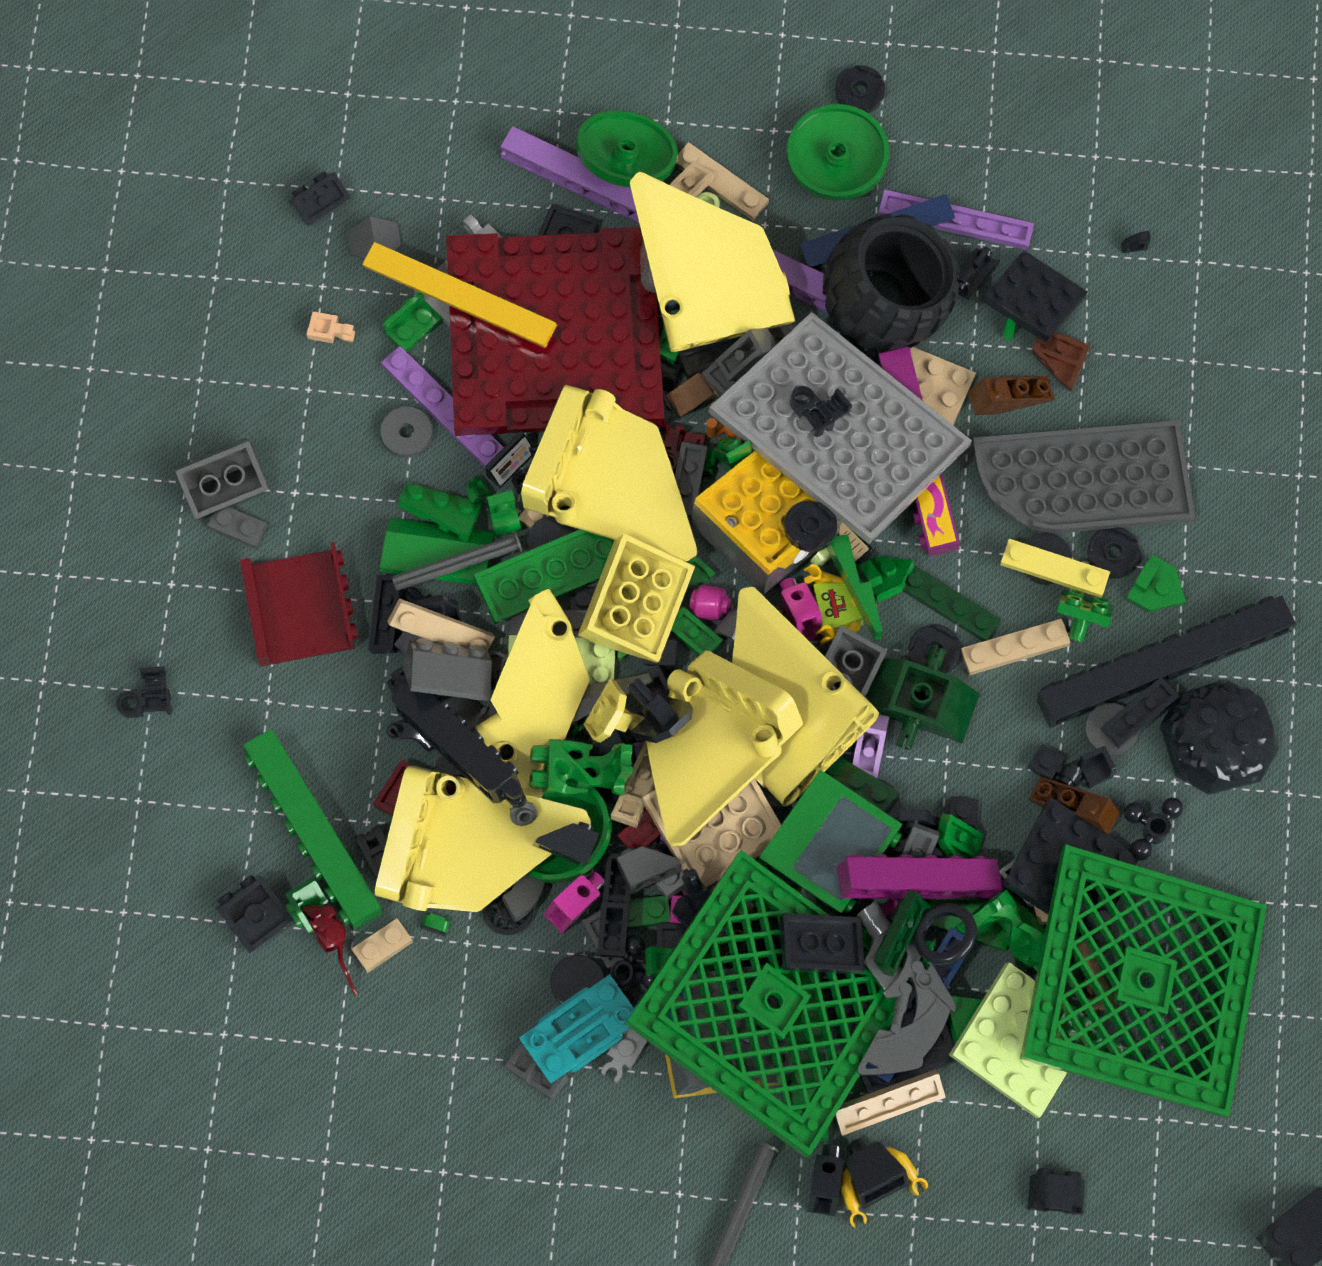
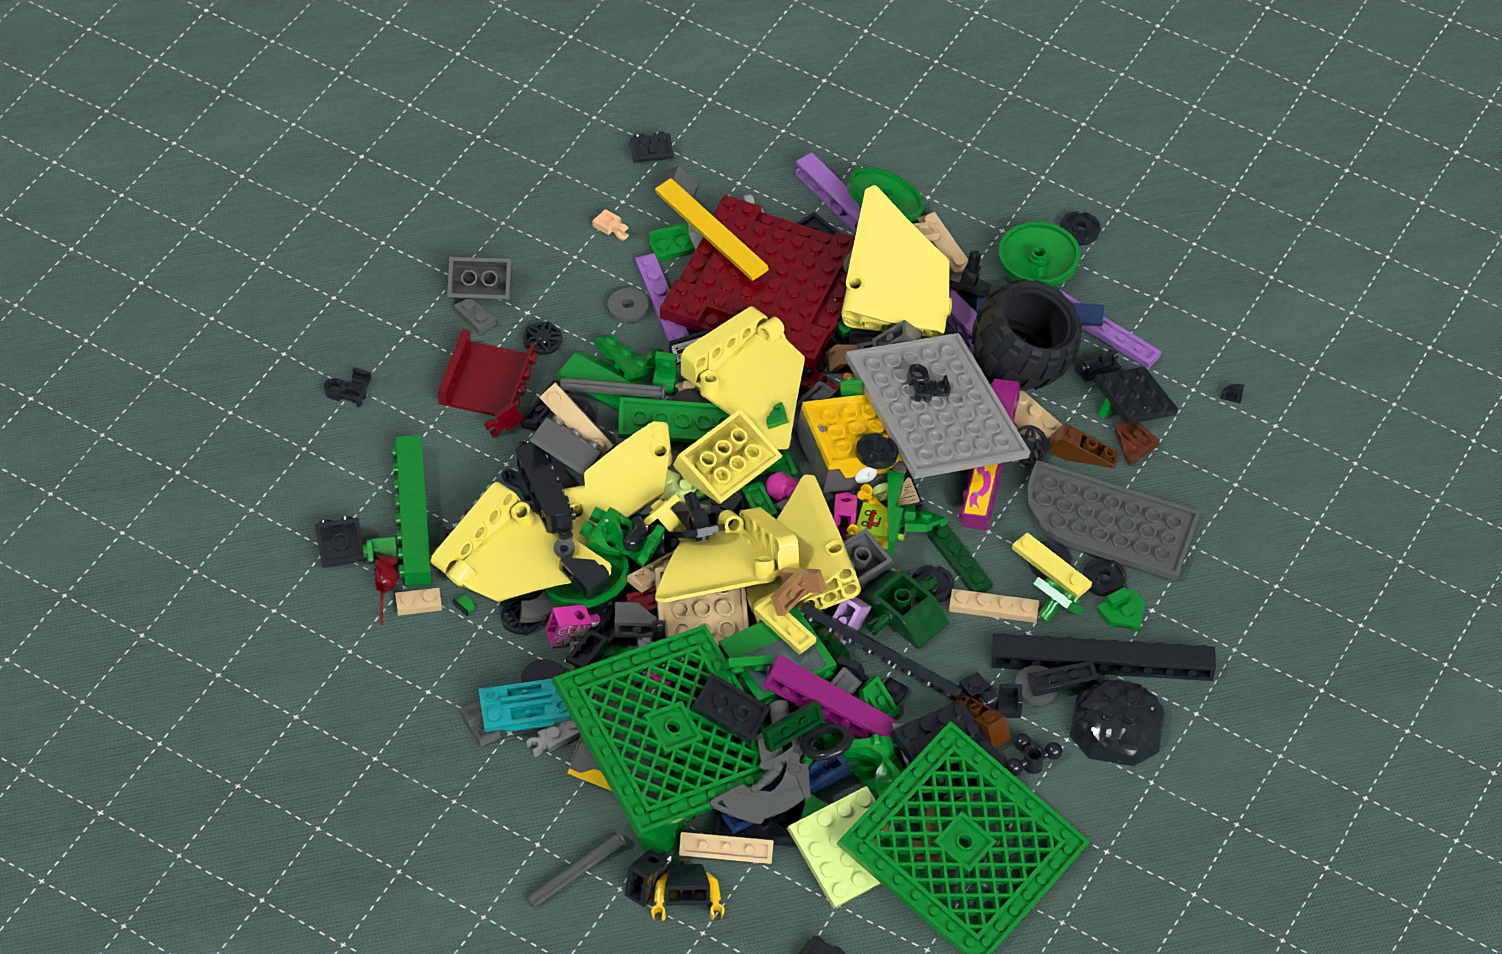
camera: 25 degrees right, 20 degrees down
(332, 522) = (543, 338): none -> black wheel
(353, 658) = (505, 418): none -> dark red plate
(600, 761) = (636, 536): none -> black arm
(666, 520) = (777, 416): none -> green tile
(781, 225) = (969, 280): none -> black piece
(814, 747) = (795, 585): none -> medium nougat bracket
(818, 873) = (738, 664): none -> green plate
(824, 805) = (785, 627): none -> light yellow plate
(941, 775) = (889, 655): none -> black plate
(954, 414) = (1033, 443): none -> black wheel

